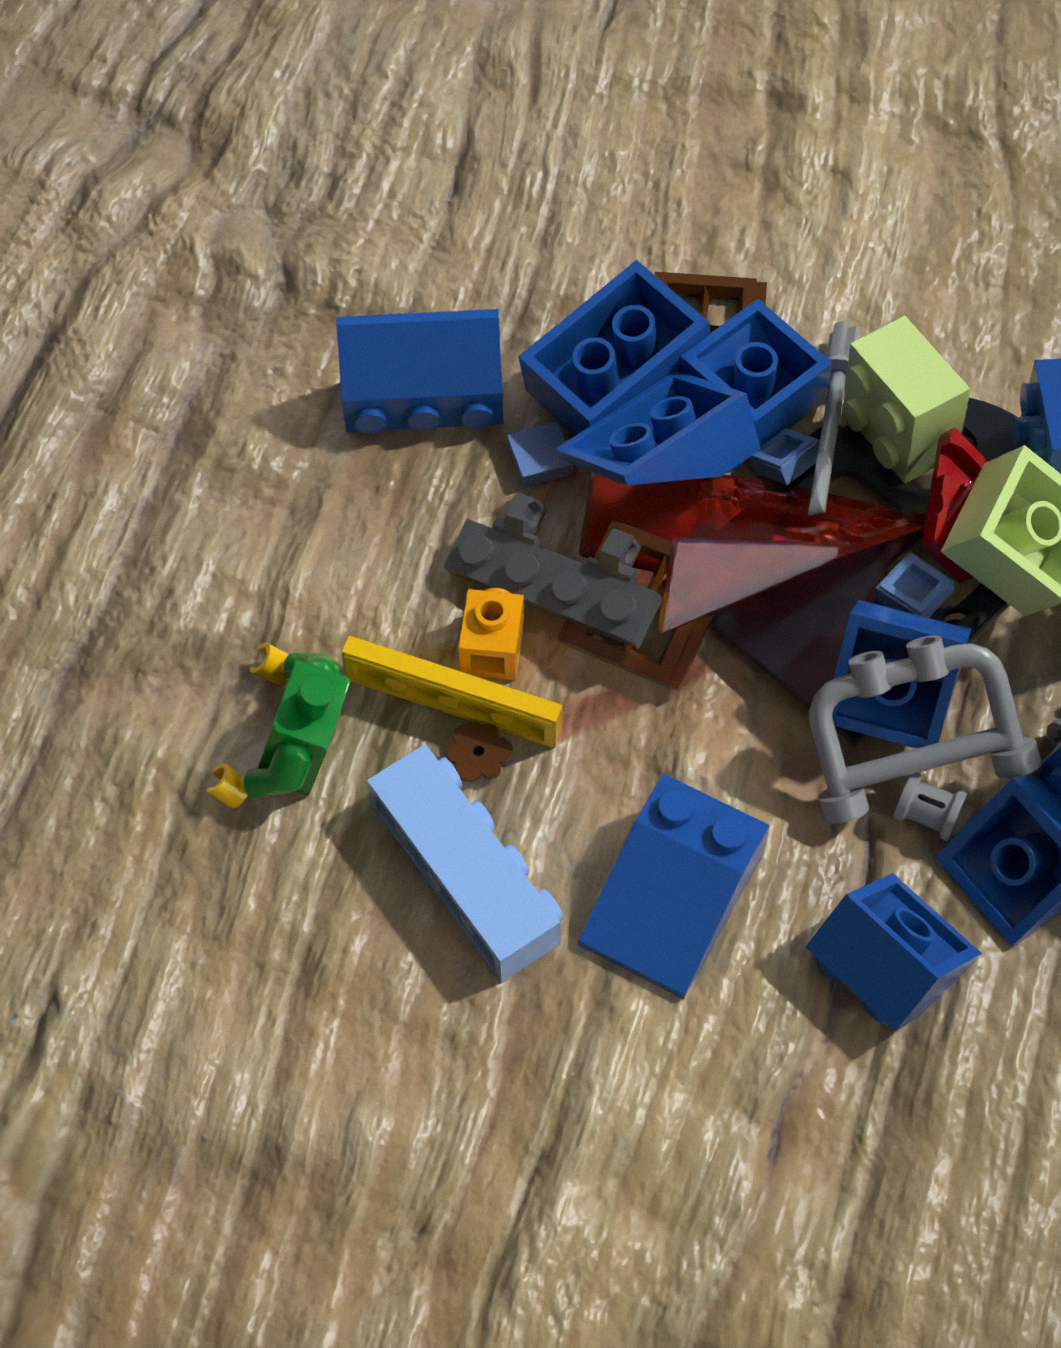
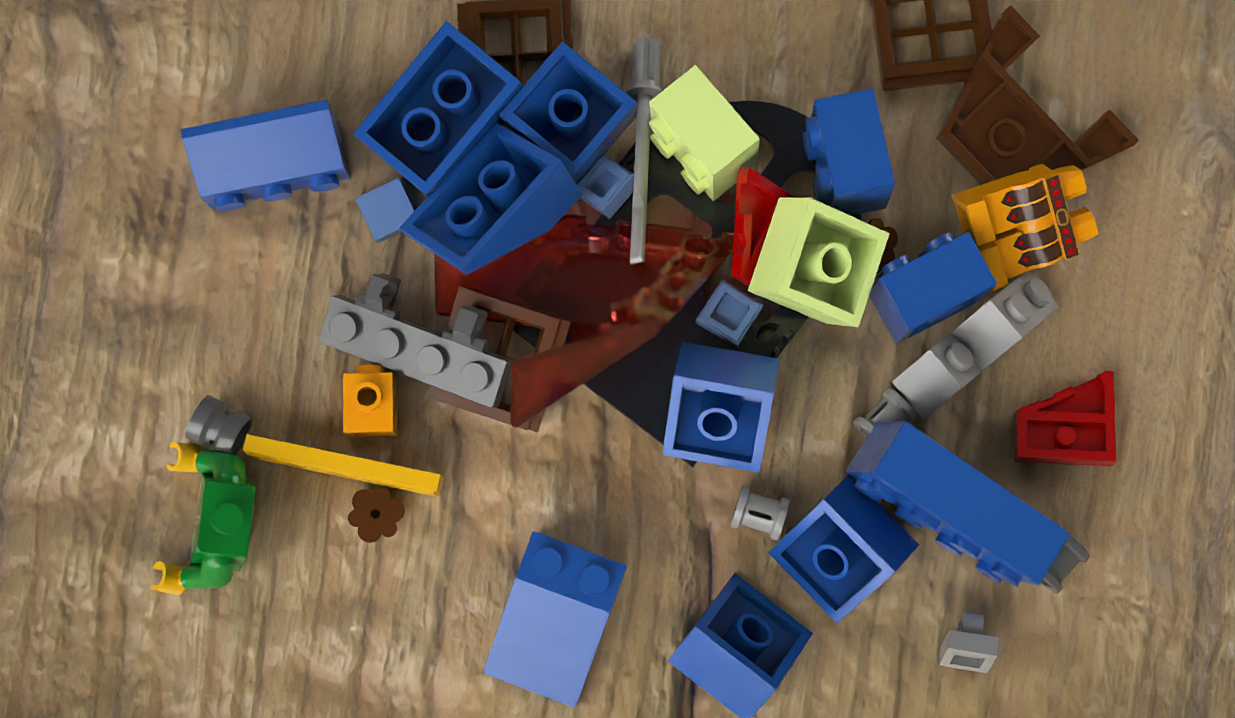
camera: 10 degrees left, 20 degrees up
(313, 631) = (215, 425): none -> dark grey wheel
(465, 861) = (377, 621): light blue brick -> none
(927, 661) = (697, 432): light grey bar -> none

